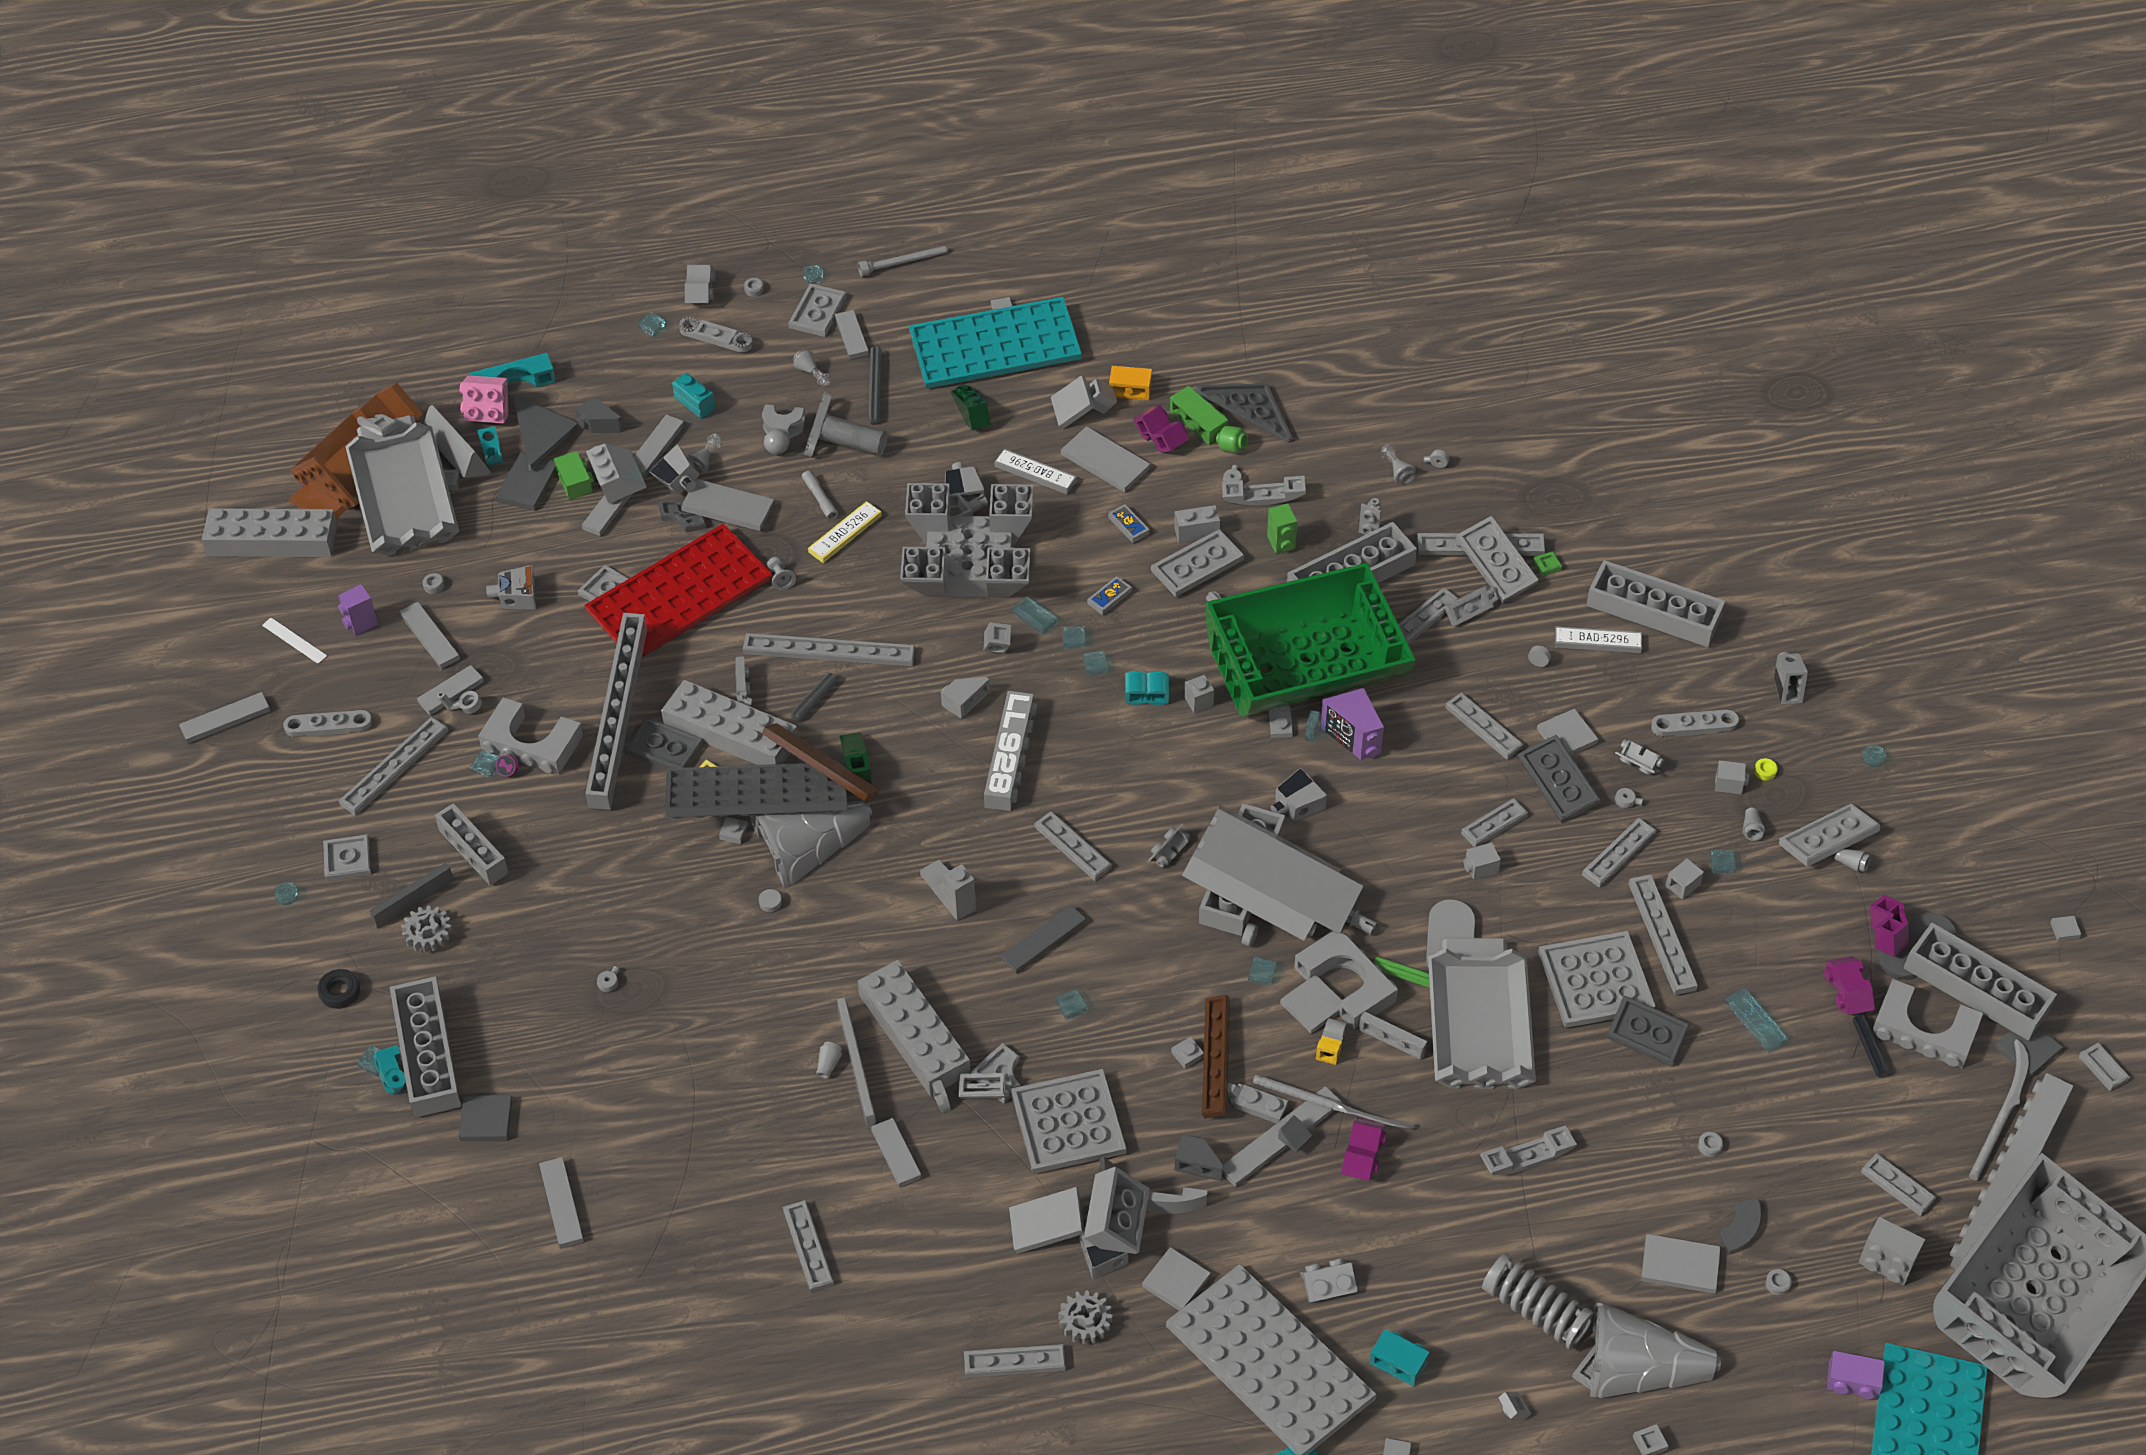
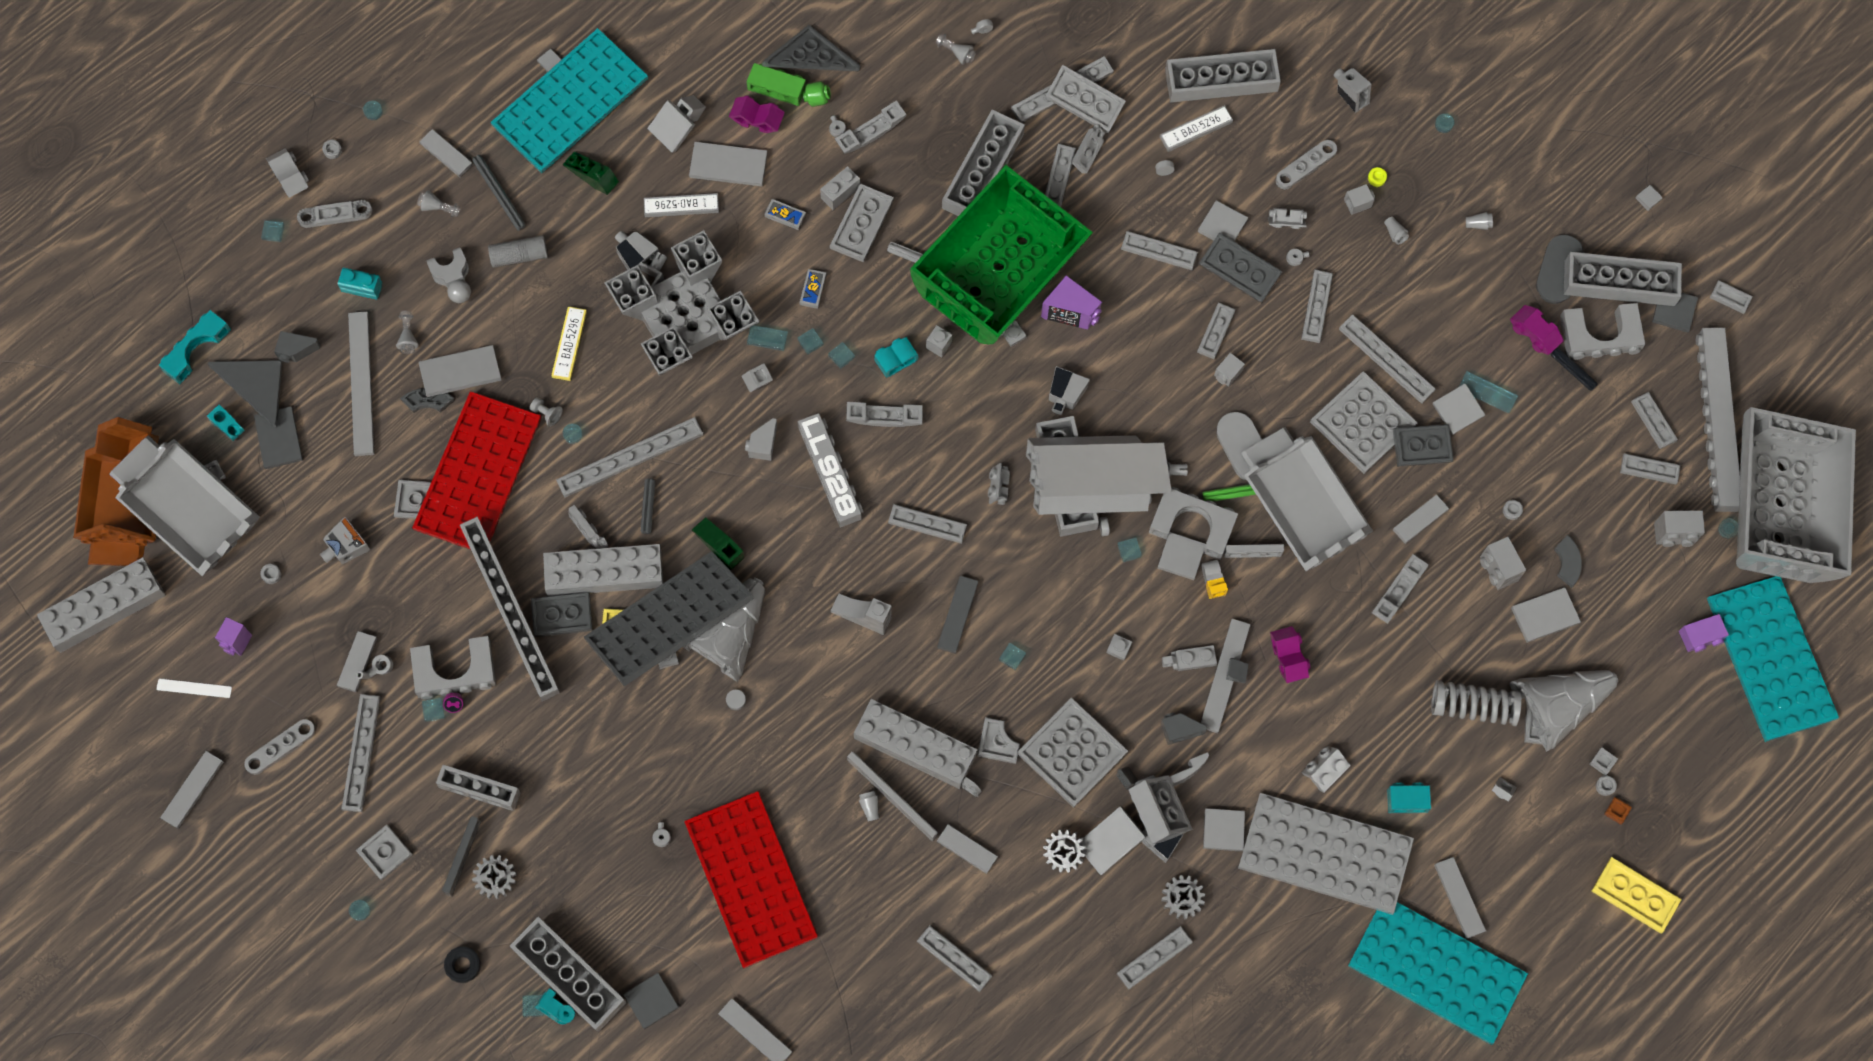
camera: 35 degrees left, 20 degrees up
(380, 424) = (128, 461): light grey tile -> none
(429, 635) = (302, 622): light grey tile -> none
(454, 446) = (196, 441): light grey slope -> none
(484, 399) = (191, 383): bright pink brick -> none
(573, 475) = (314, 412): bright green brick -> none
(615, 471) = (350, 391): light grey slope -> none
(662, 1063) = (750, 880): none -> red plate
(676, 471) = (400, 364): light grey torso -> none
(791, 604) = (572, 433): none -> clear light blue tile
(814, 486) = (536, 326): light grey piece -> none
(816, 430) = (479, 253): light grey plate -> none
(817, 310) = (400, 143): light grey tile -> none
(820, 761) = (702, 567): reddish brown tile -> none
(866, 268) = (413, 82): light grey piece -> none
(983, 1094) = (980, 768): light grey tile -> none
(987, 1198) = (1066, 859): none -> light grey gear
(1095, 731) = (884, 415): none -> light grey slope
(1131, 382) = (703, 81): light orange brick -> none
(1216, 1056) = (1142, 640): reddish brown tile -> none
(1282, 528) = (910, 159): bright green brick -> none
(1312, 726) = (1038, 322): clear light blue tile -> none
(1323, 1101) = (1244, 632): light grey piece -> none
(1370, 516) = (971, 113): light grey hinge -> none
(1547, 563) = (1120, 79): bright green tile -> none
(1599, 1100) = (1420, 519): none -> light grey tile
(1659, 1181) = (1502, 563): none -> light grey brick
(1684, 878) = (1376, 304): light grey brick -> none
(1711, 1018) = (1458, 409): none -> light grey tile
(1722, 861) = (1391, 273): clear light blue tile -> none
(1778, 1282) = (1615, 590): light grey tile -> none
(1829, 834) = (1453, 210): light grey tile -> none
(1890, 925) = (1535, 259): magenta brick -> none
(1934, 1141) = (1654, 420): none -> light grey tile
(2011, 1101) = (1687, 360): light grey piece -> none

